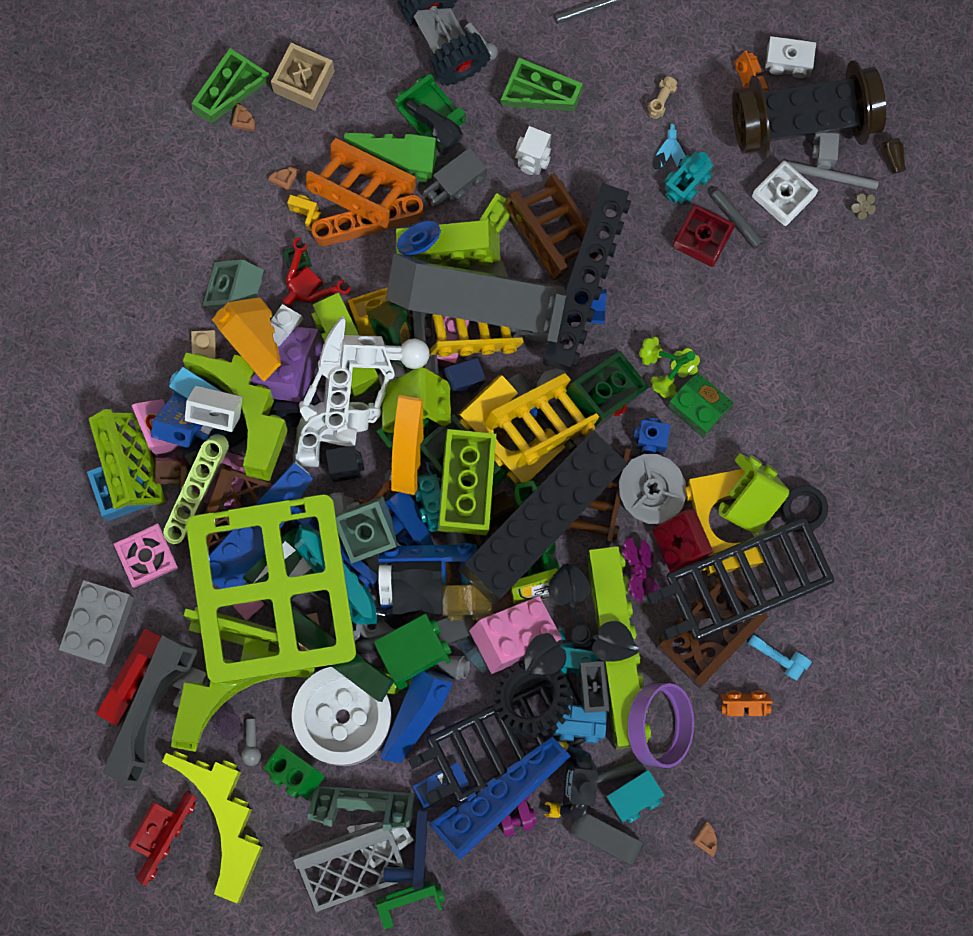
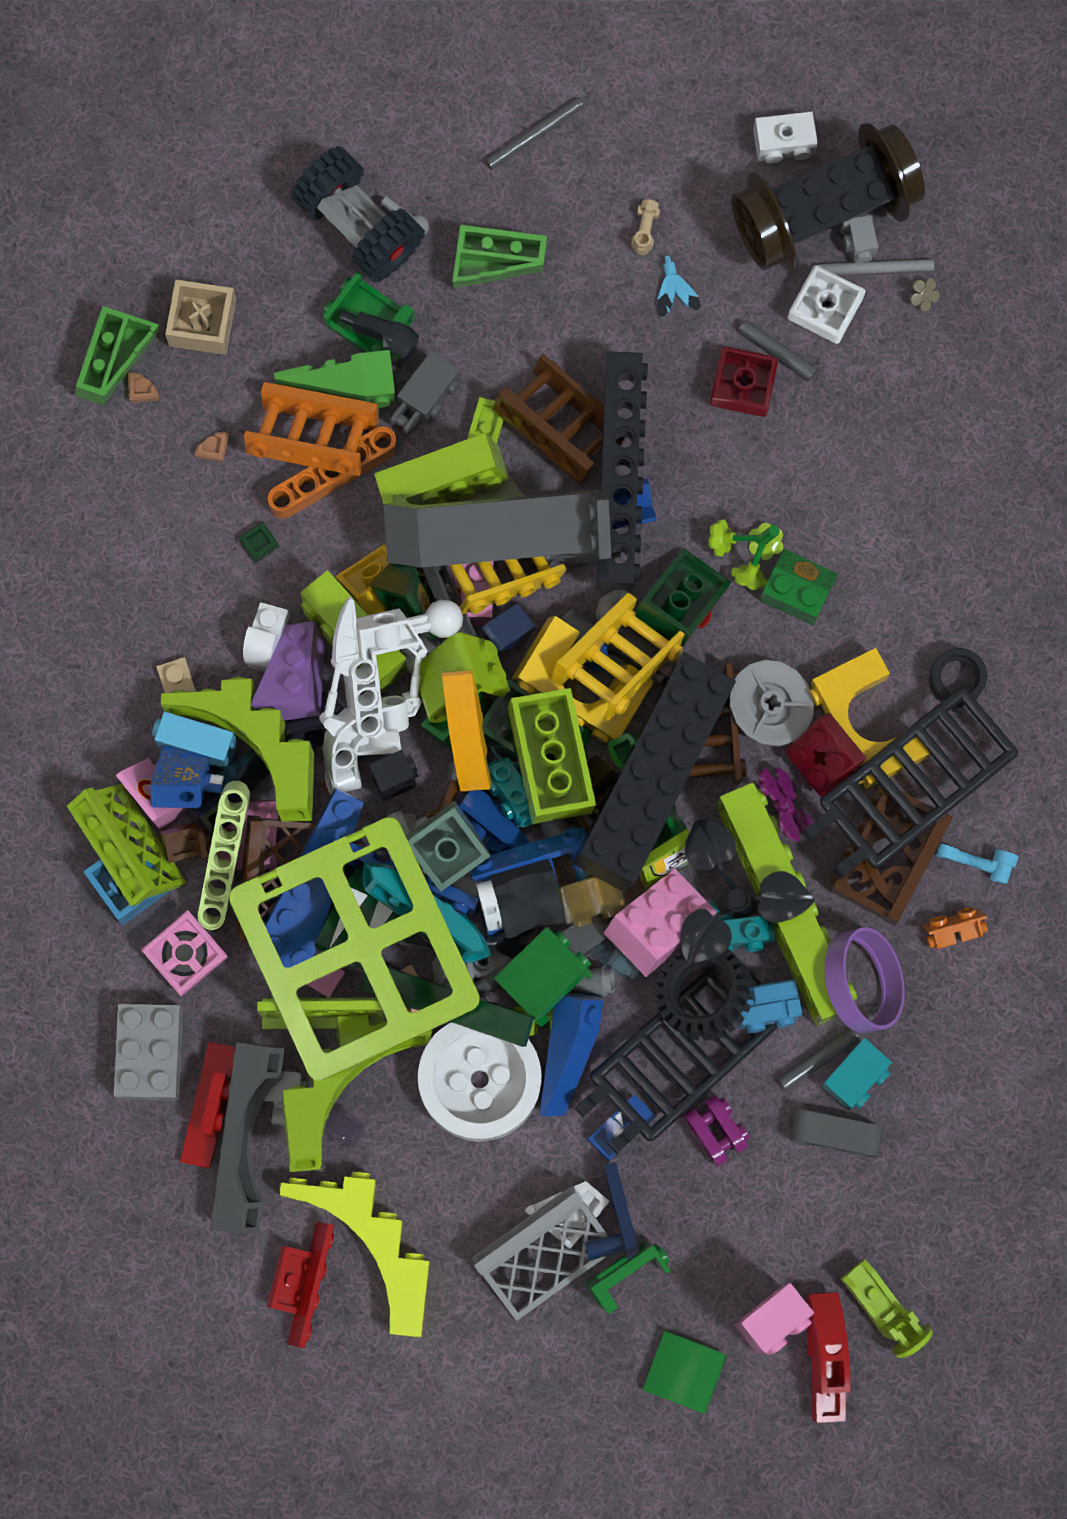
camera: 20 degrees left, 0 degrees up
(213, 408) = (219, 751): white brick -> none
(232, 282) = (192, 598): sand green slope -> none
(250, 332) = (234, 646): light orange wedge -> none
(251, 754) = (383, 1156): light grey bar -> none
(292, 774) = (443, 1158): green brick -> none
(304, 206) = (250, 476): yellow bracket -> none
(306, 282) = (279, 568): red piece -> none
(329, 799) = (577, 1165): sand green wedge -> none
(418, 238) = (407, 477): blue dish -> none
(474, 819) = (683, 1143): blue wing -> none
(533, 151) = (510, 334): white brick -> none
(579, 785) = (787, 1076): black torso -> none
(593, 687) = (771, 958): dark grey slope -> none
(652, 427) = (756, 630): blue brick -> none
(693, 171) = (709, 308): teal brick -> none
(706, 840) = (955, 1102): nougat tile -> none
(748, 66) = (738, 163): orange hinge -> none
(756, 494) = (898, 675): lime piece -> none
(894, 154) = (942, 221): dark brown cone -> none

